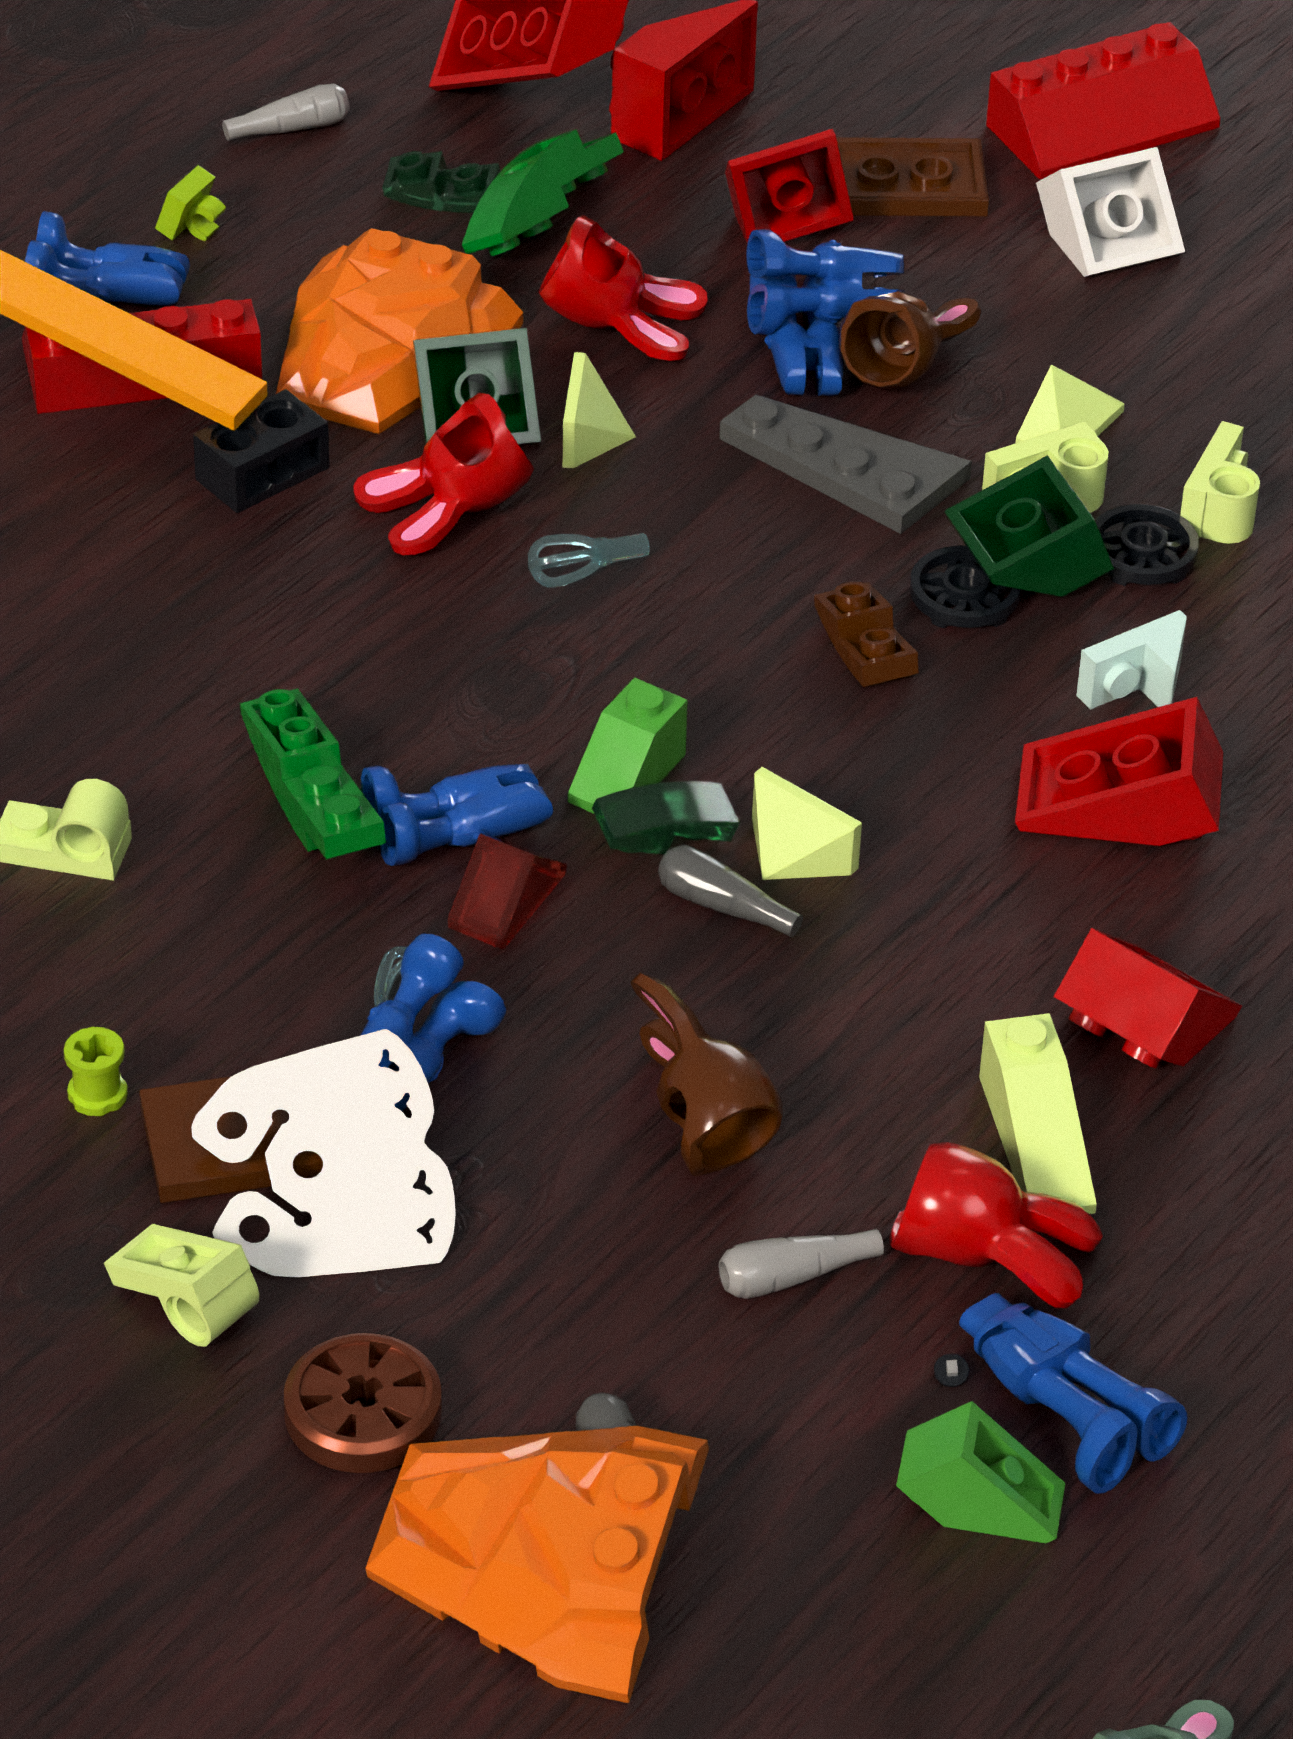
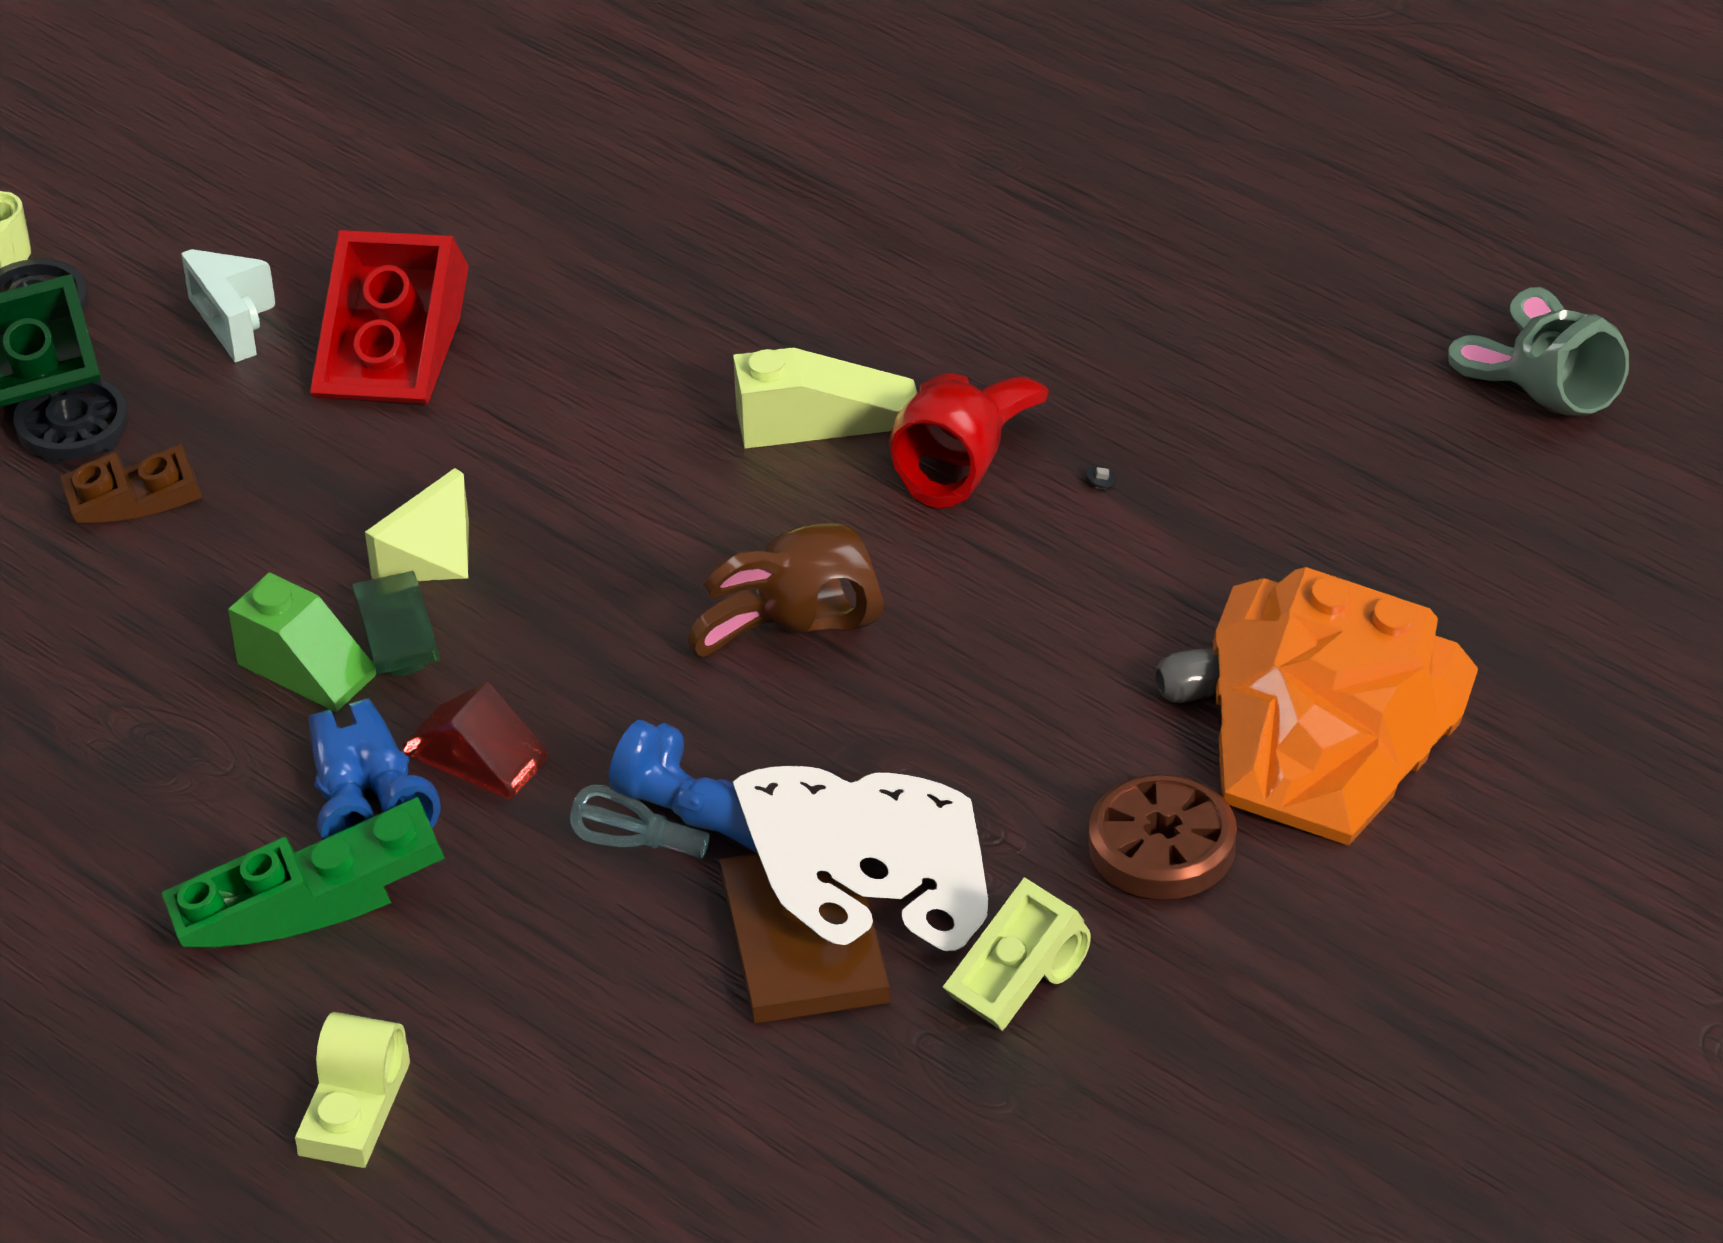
camera: 85 degrees left, 0 degrees up
(95, 1062) = (736, 1038): lime bush -> none
(715, 886) = (492, 596): dark grey piece -> none
(781, 1263) = (988, 565): light grey piece -> none
(979, 1477) = (1242, 452): bright green slope -> none
(1041, 1360) = (1112, 409): blue piece -> none
(1142, 1000) = (685, 324): red slope -> none

